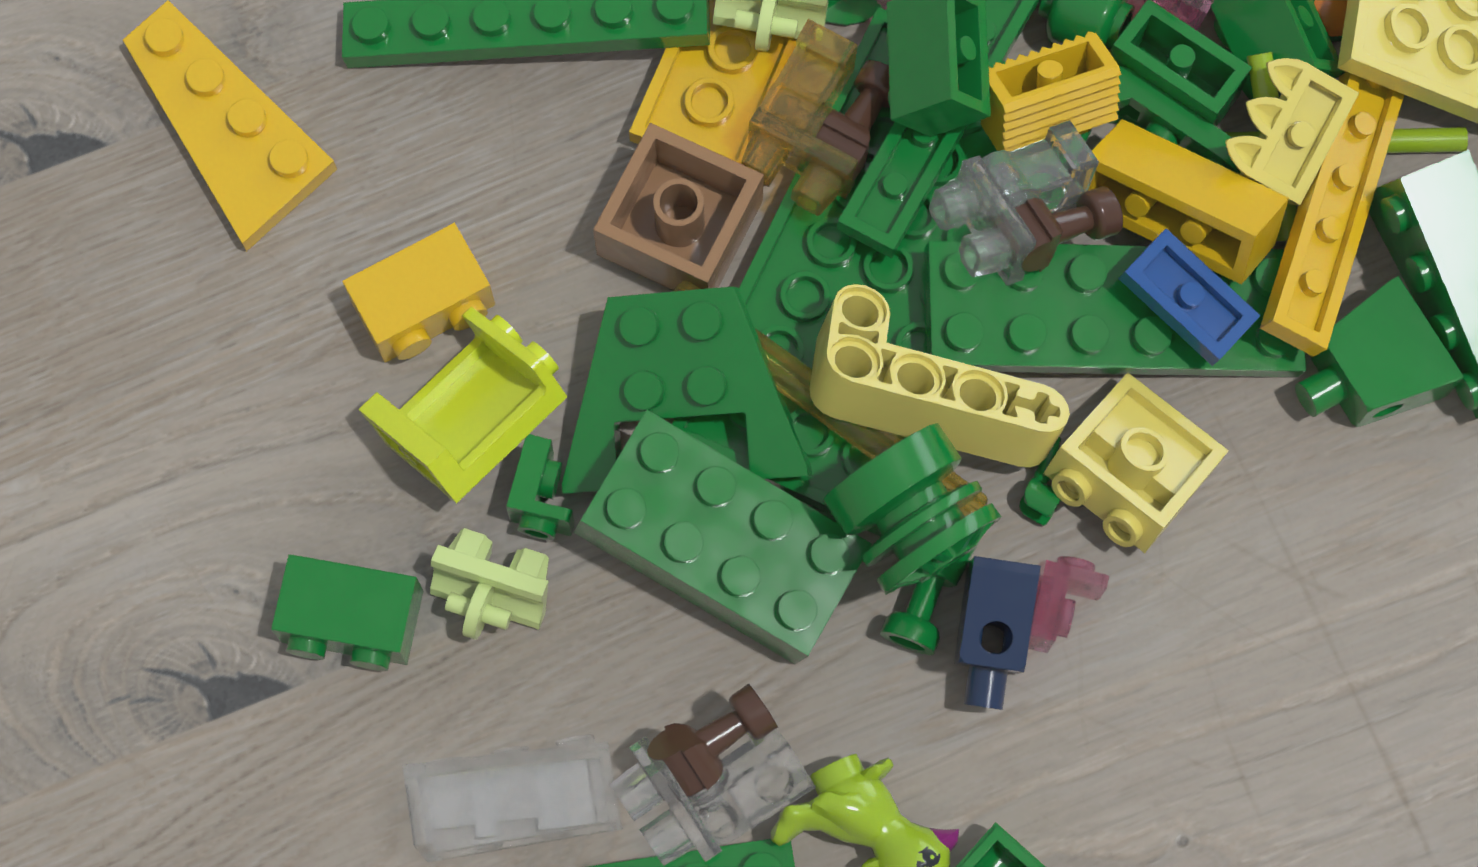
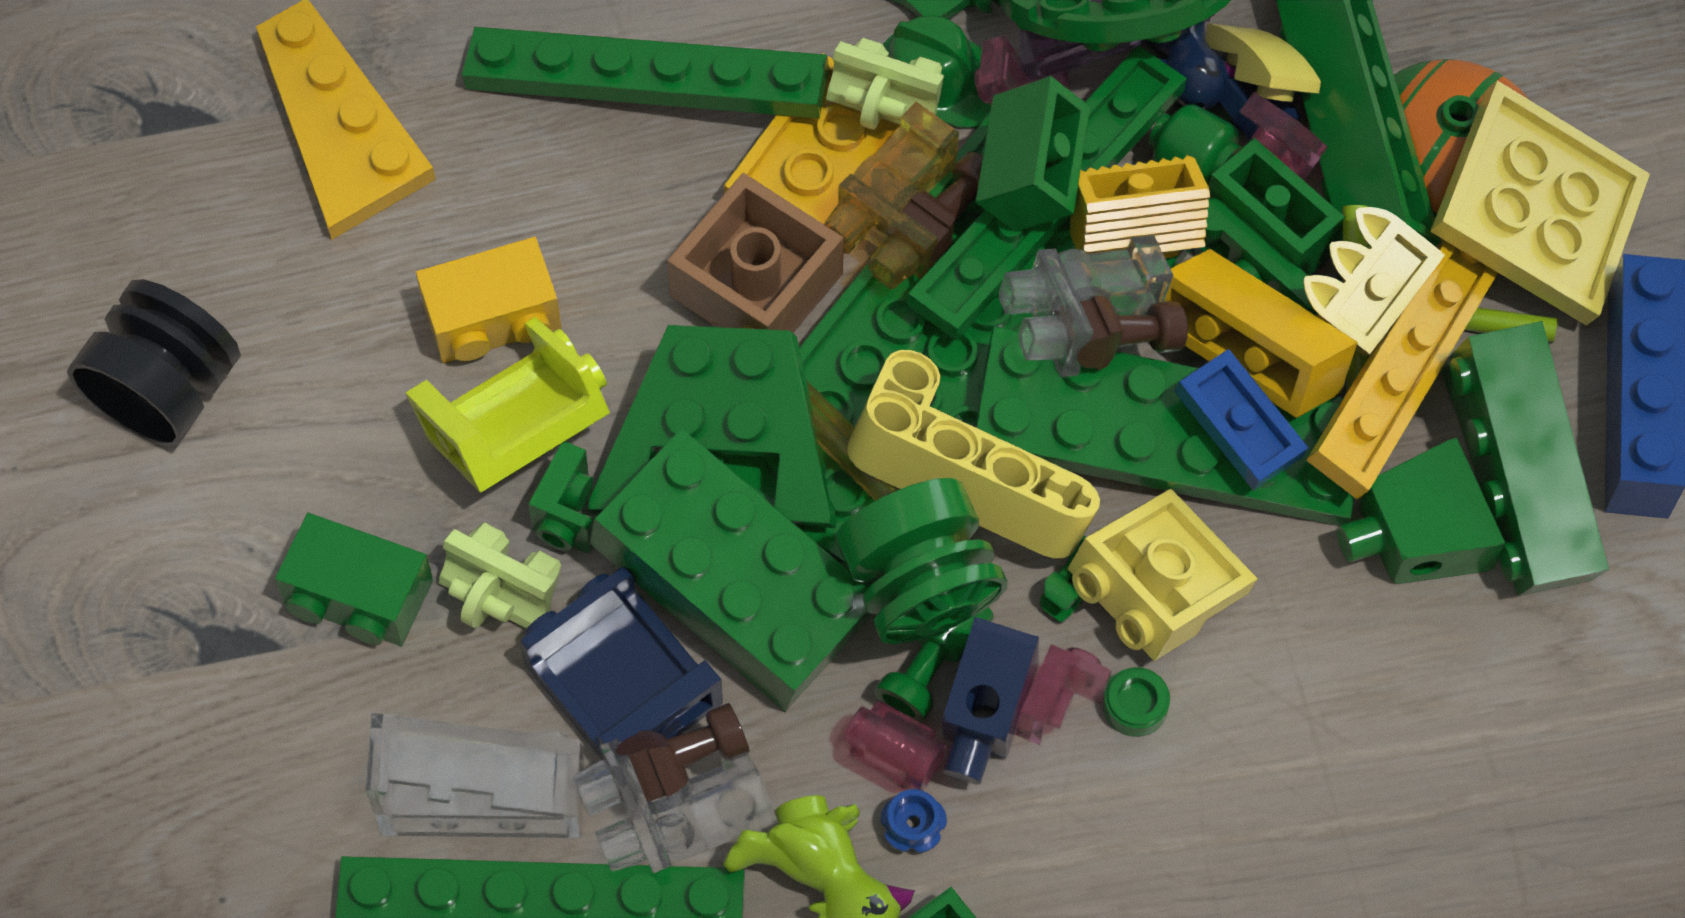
camera: 10 degrees right, 10 degrees down
(105, 413) = (154, 362): none -> black wheel
(627, 654) = (618, 665): none -> dark blue panel
(911, 685) = (894, 746): none -> clear pink brick
(946, 739) = (918, 805): none -> blue plate
(1134, 594) = (1136, 702): none -> green tile

